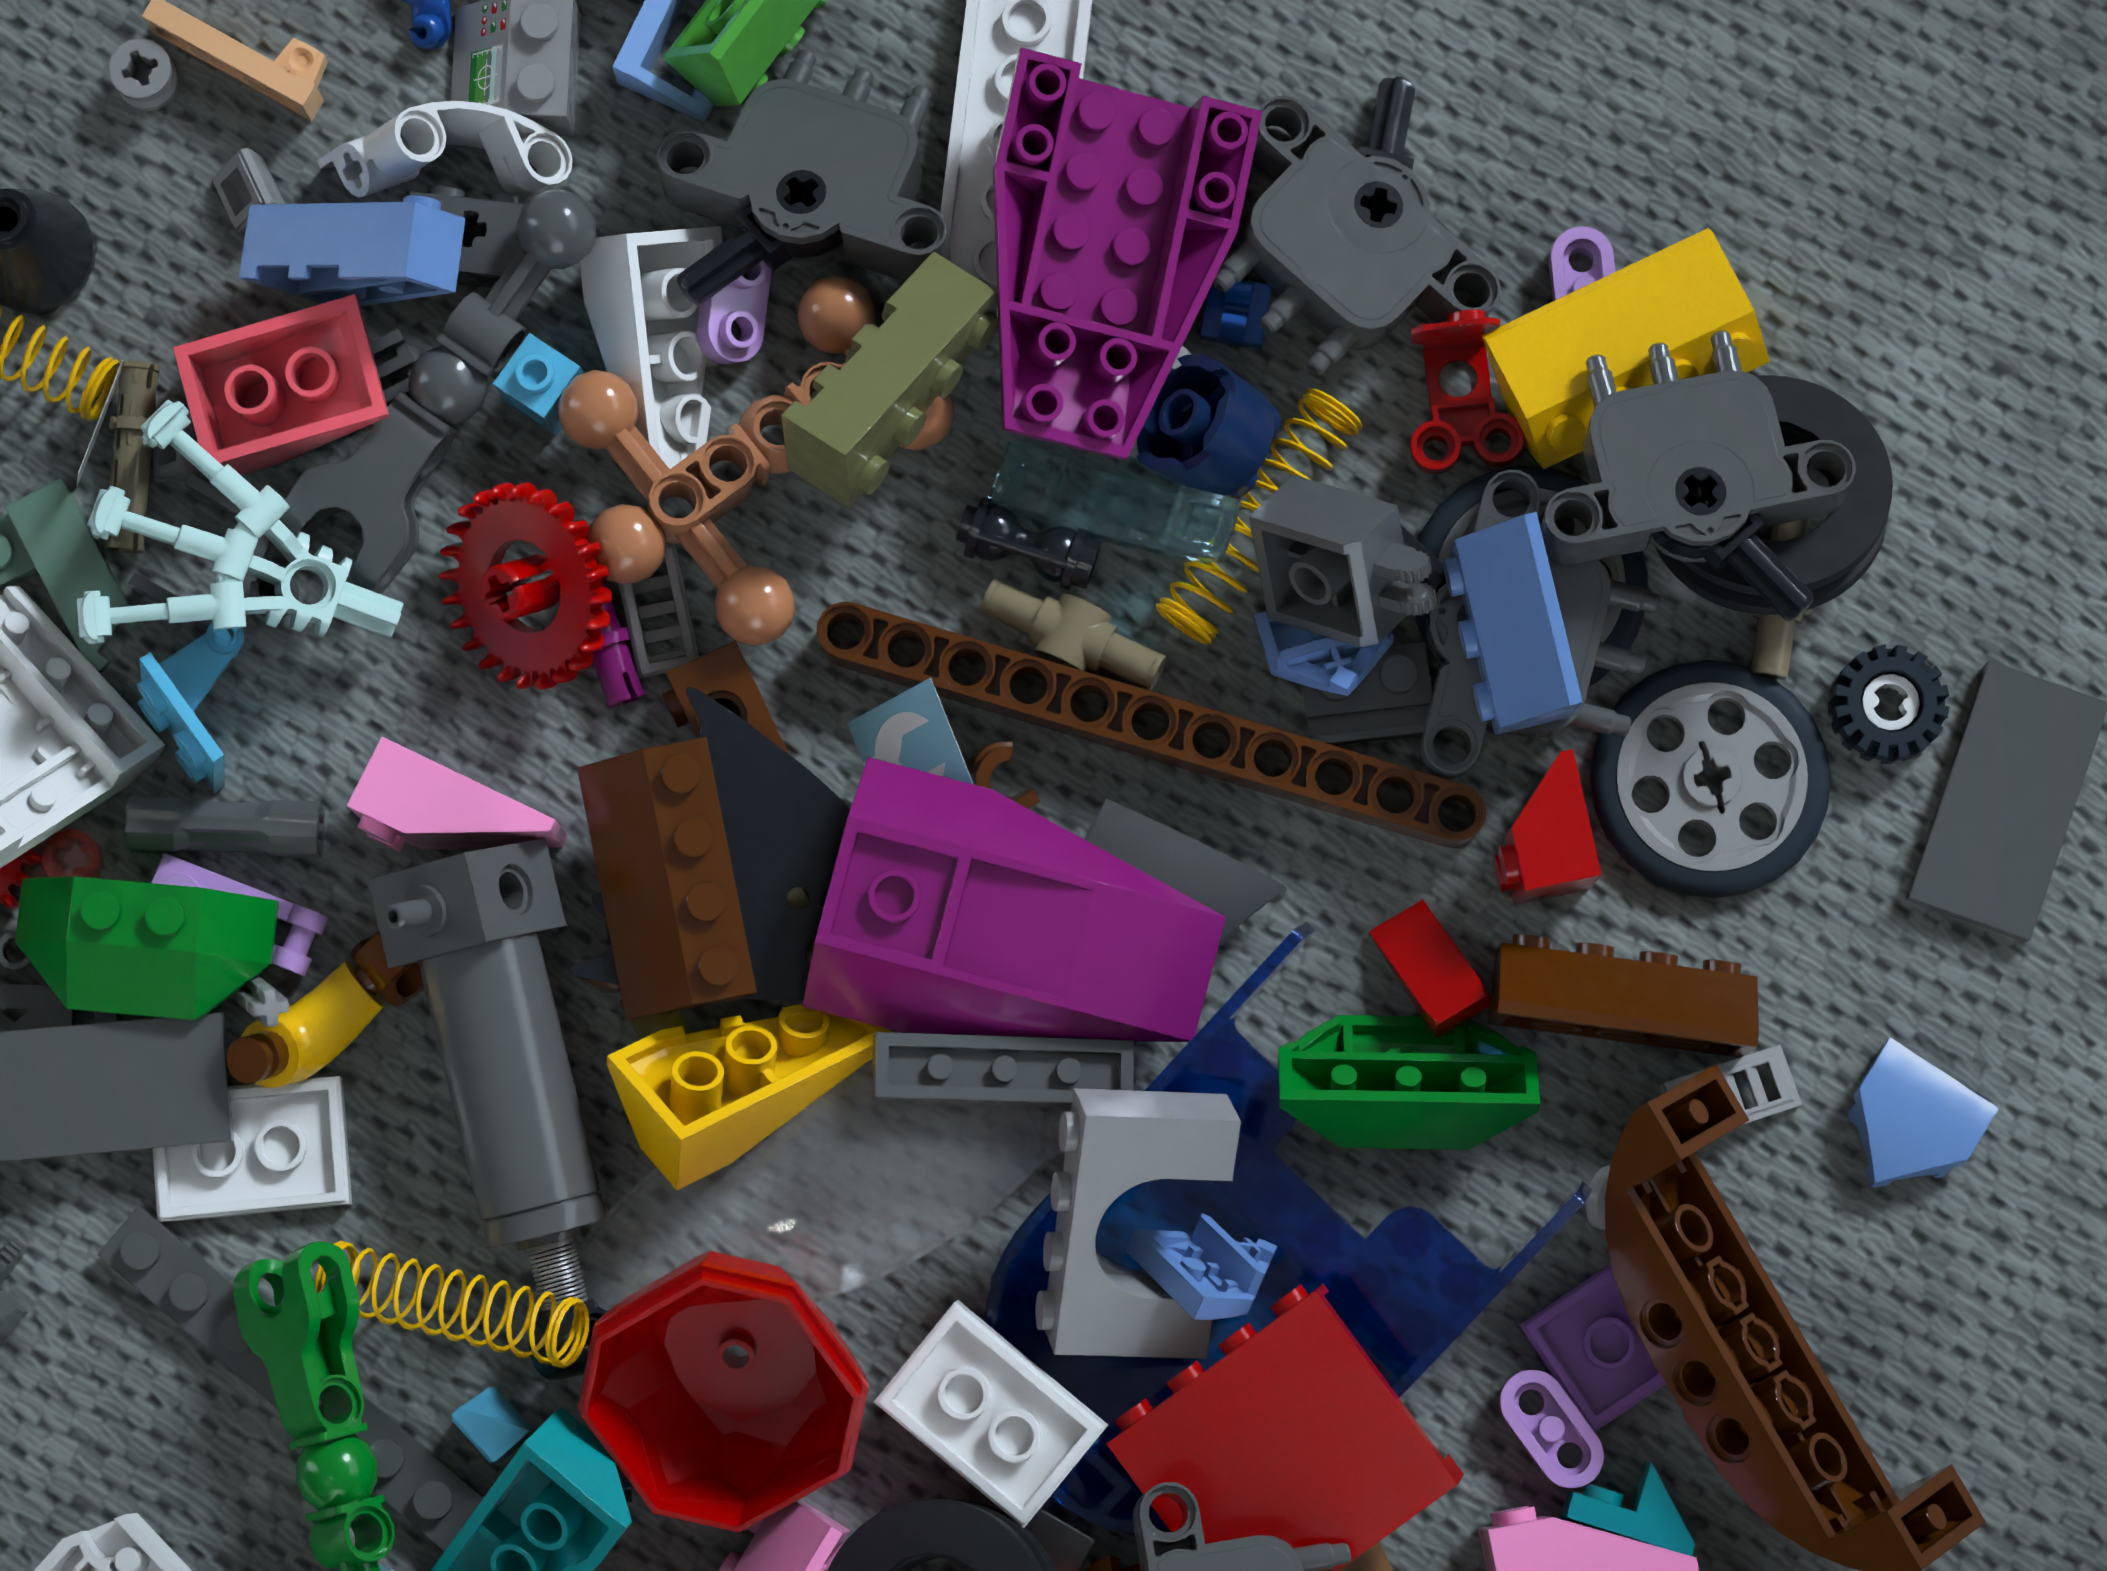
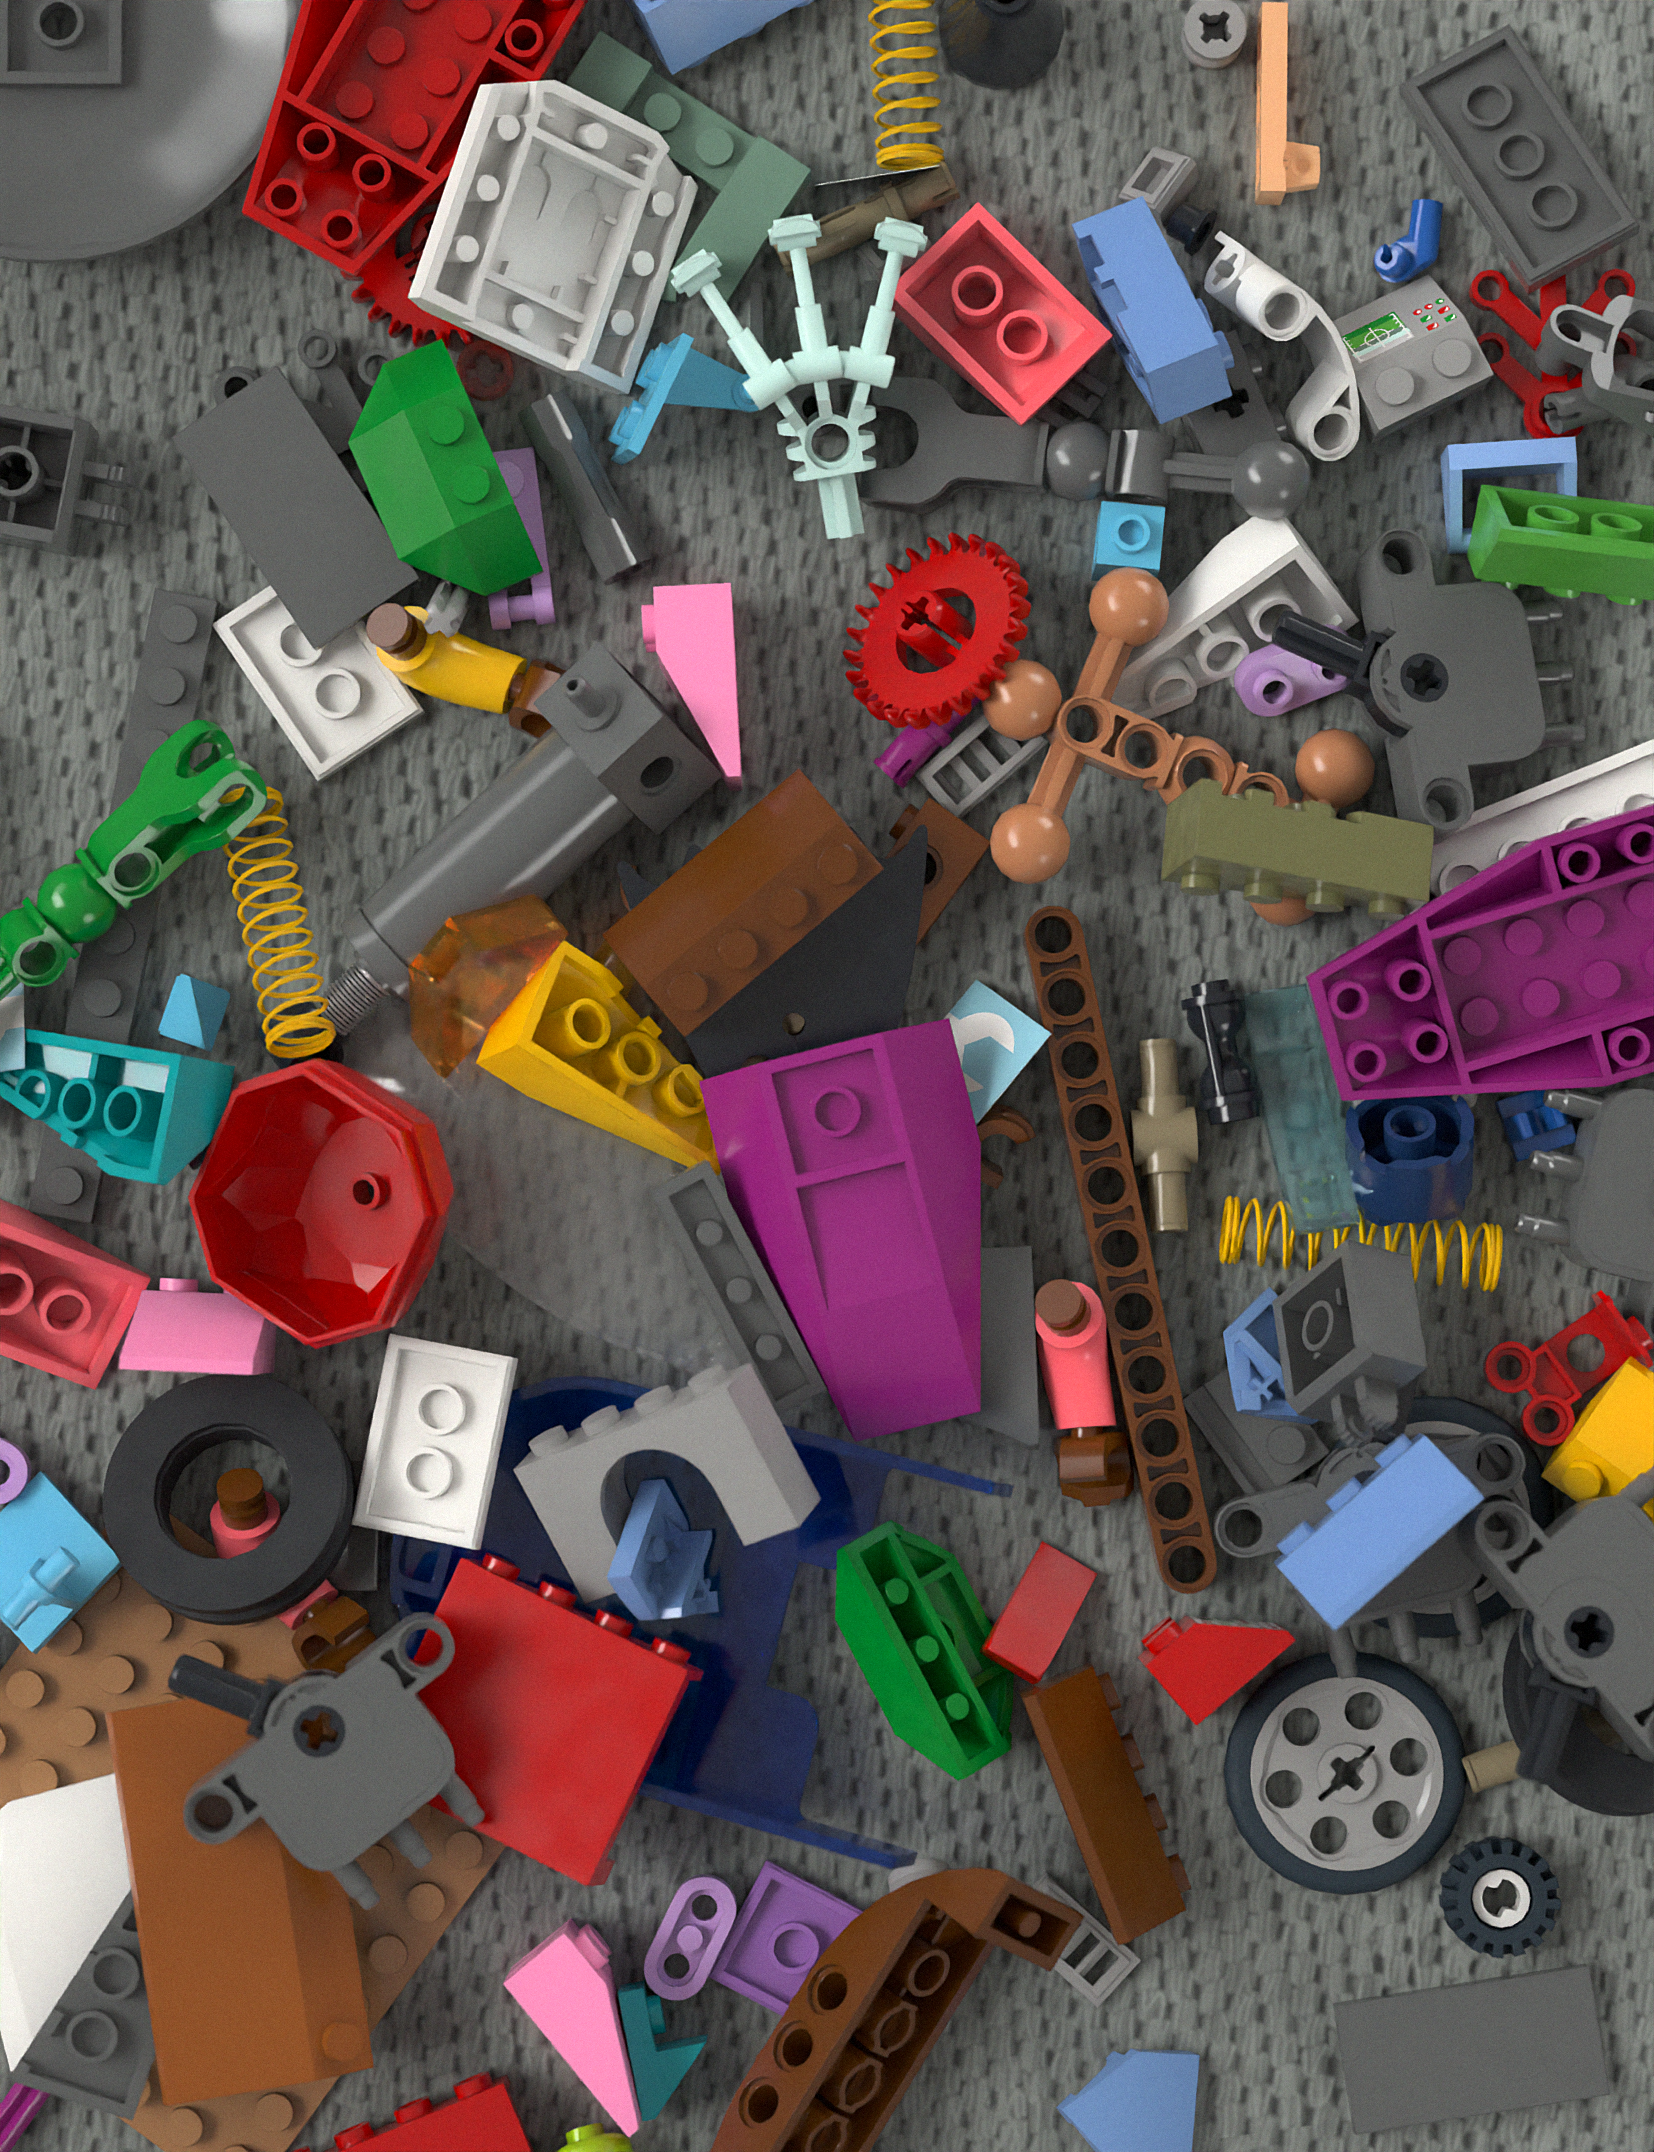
camera: 60 degrees right, 5 degrees up
(299, 183) = (1191, 226): none -> black piece
(598, 1148) = (475, 973): none -> clear orange slope
(1252, 825) = (1079, 1391): none -> piece

